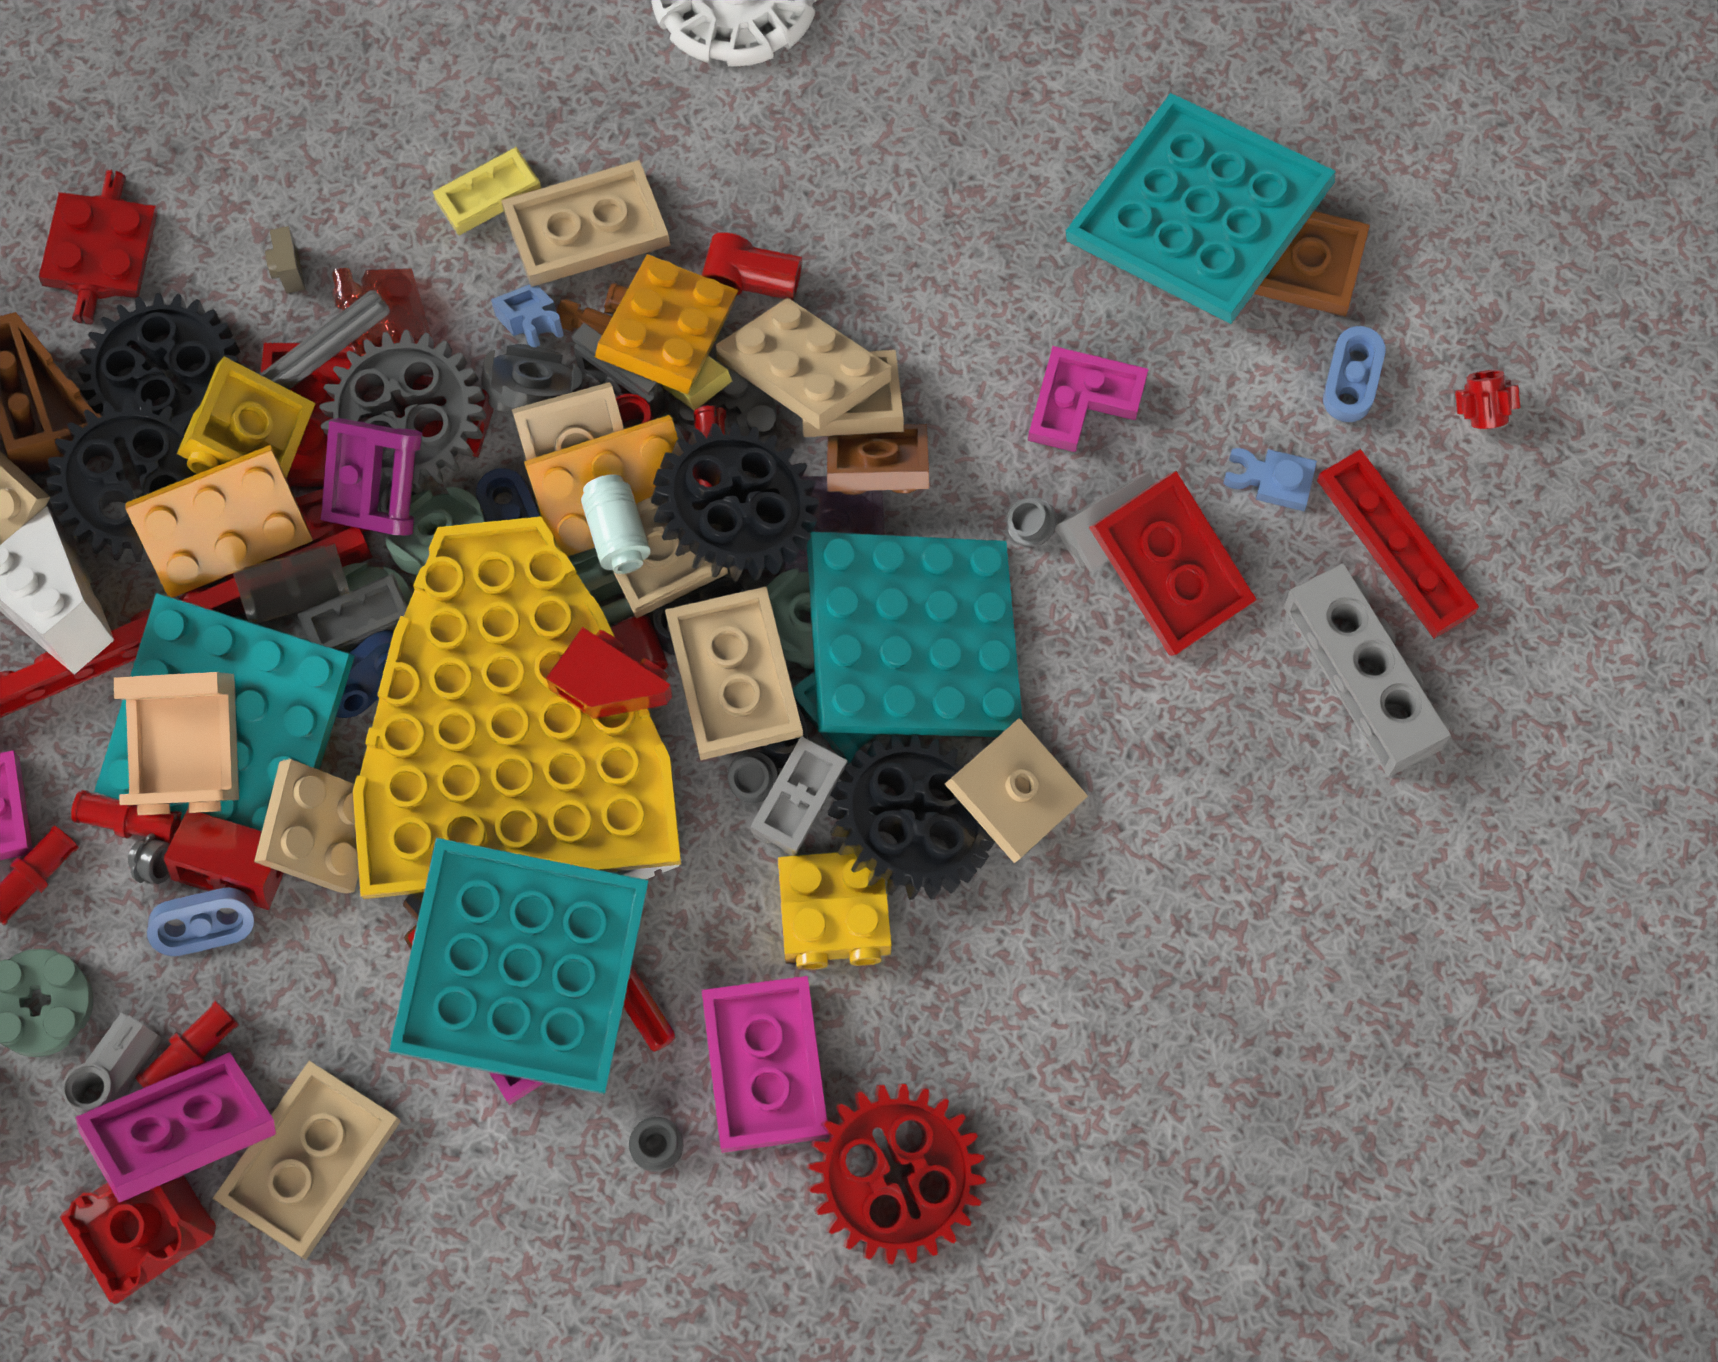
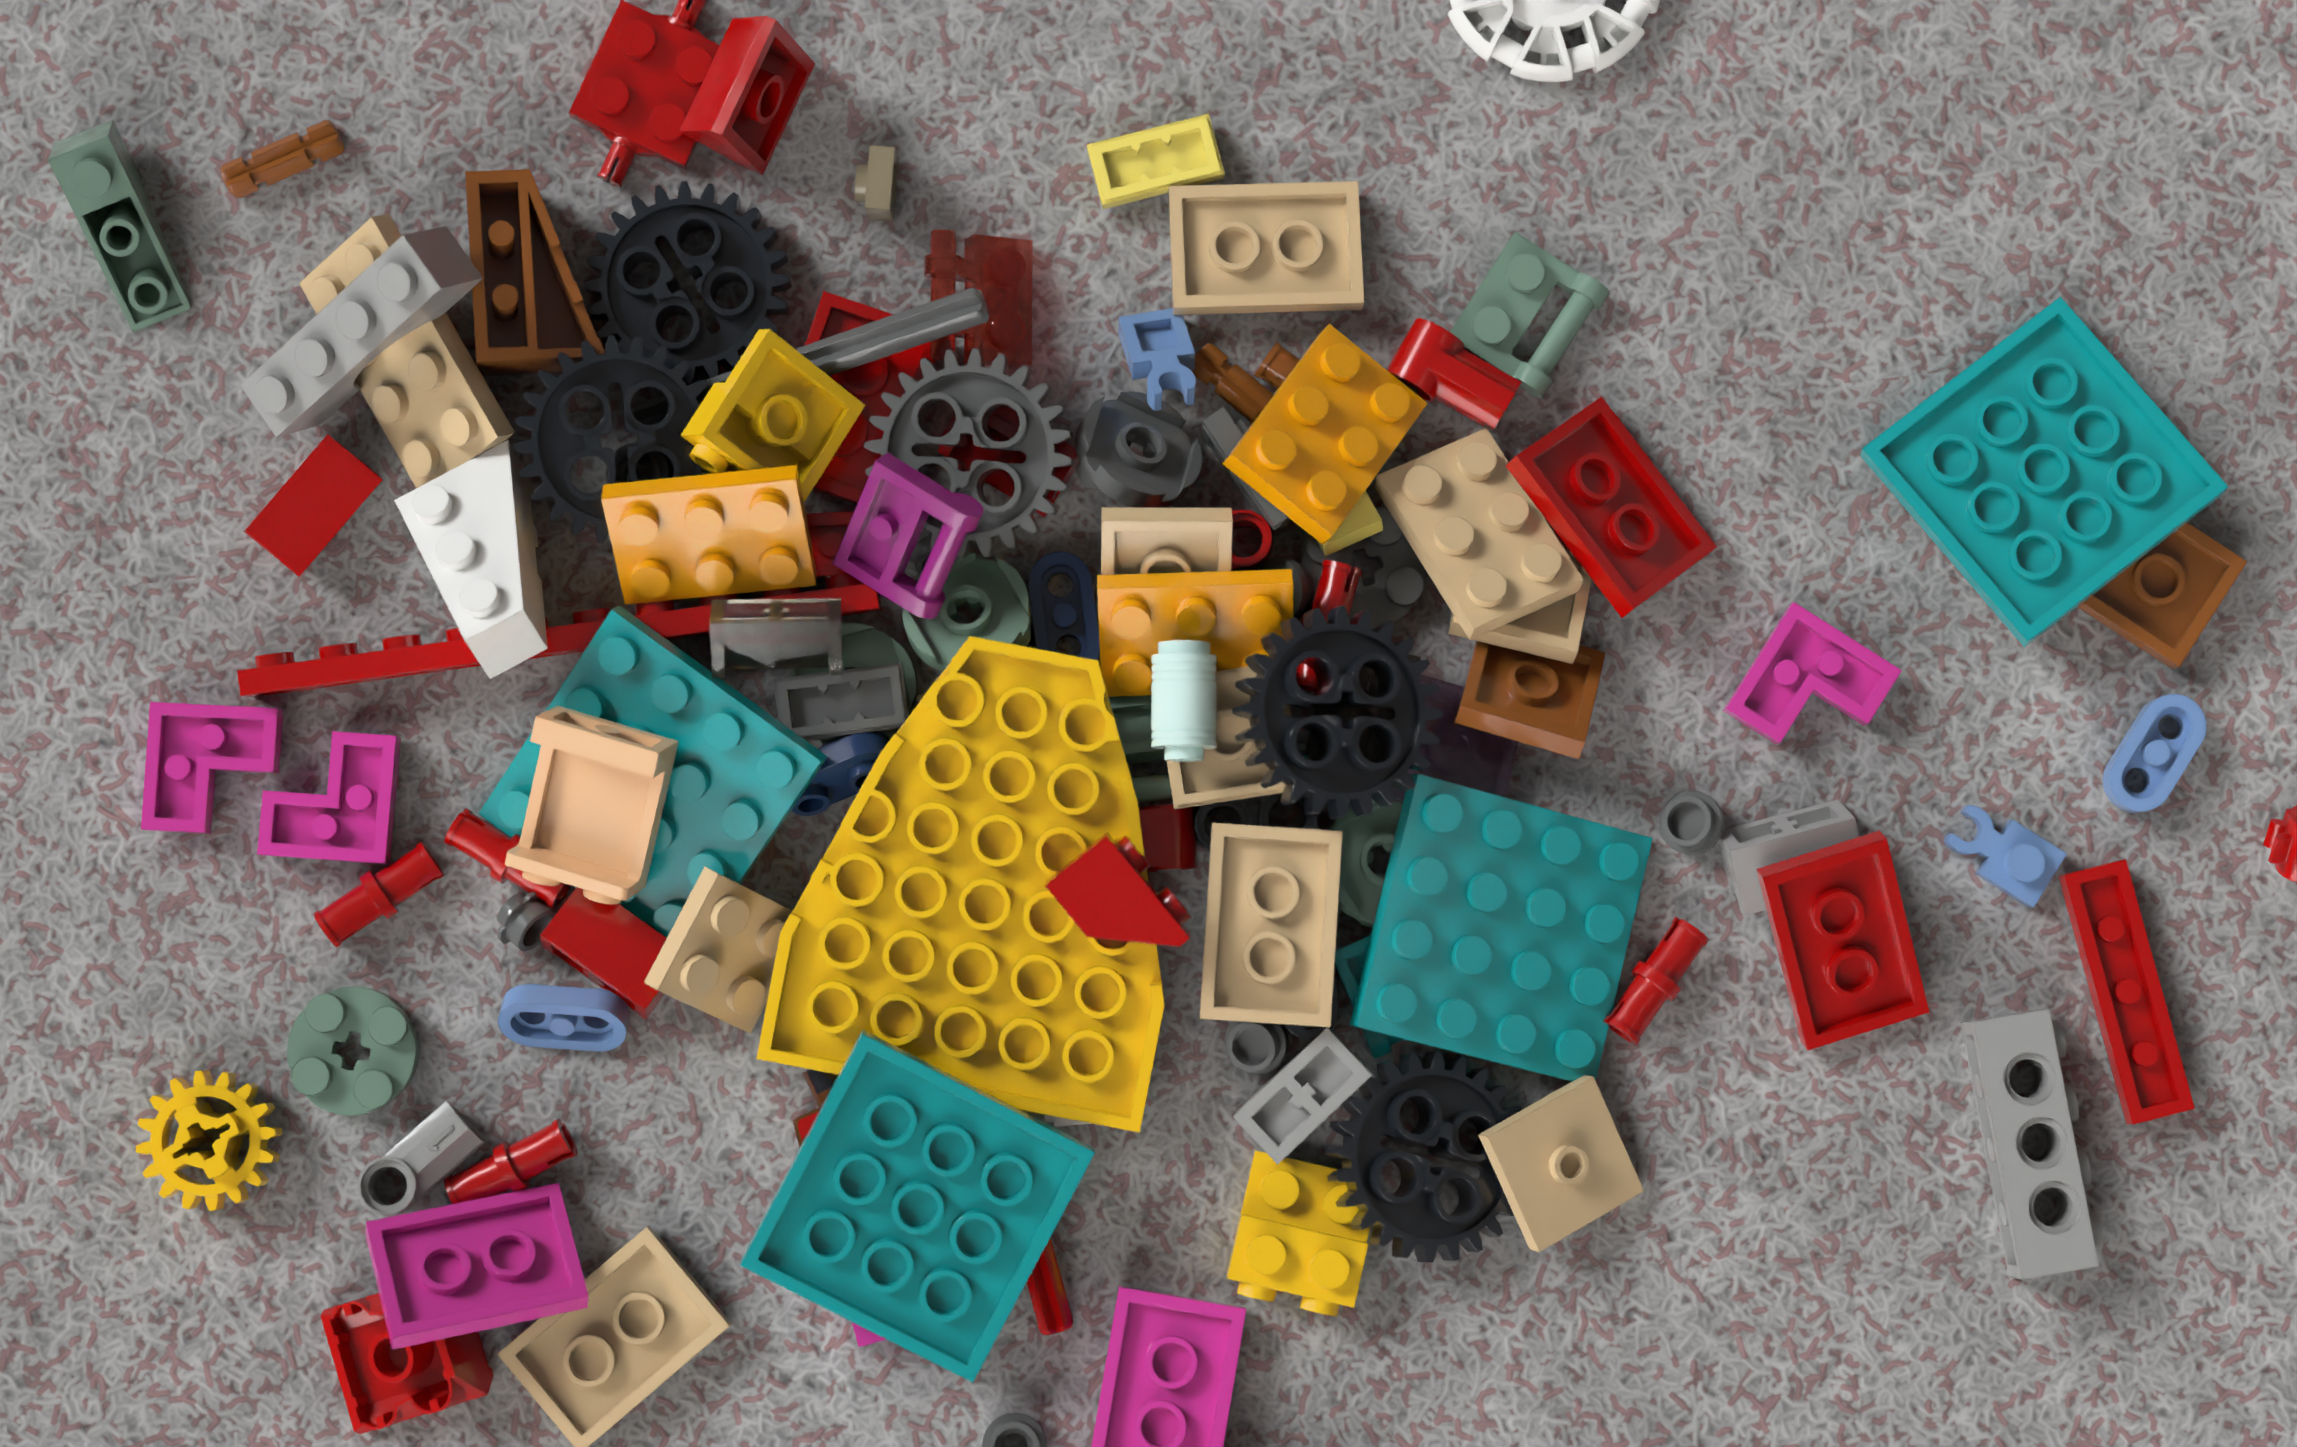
camera: 15 degrees right, 15 degrees up
(172, 224) = (749, 92): none -> red slope
(778, 210) = (1510, 301): none -> sand green plate
(896, 319) = (1611, 506): none -> red plate
(1044, 640) = (1656, 980): none -> red pin

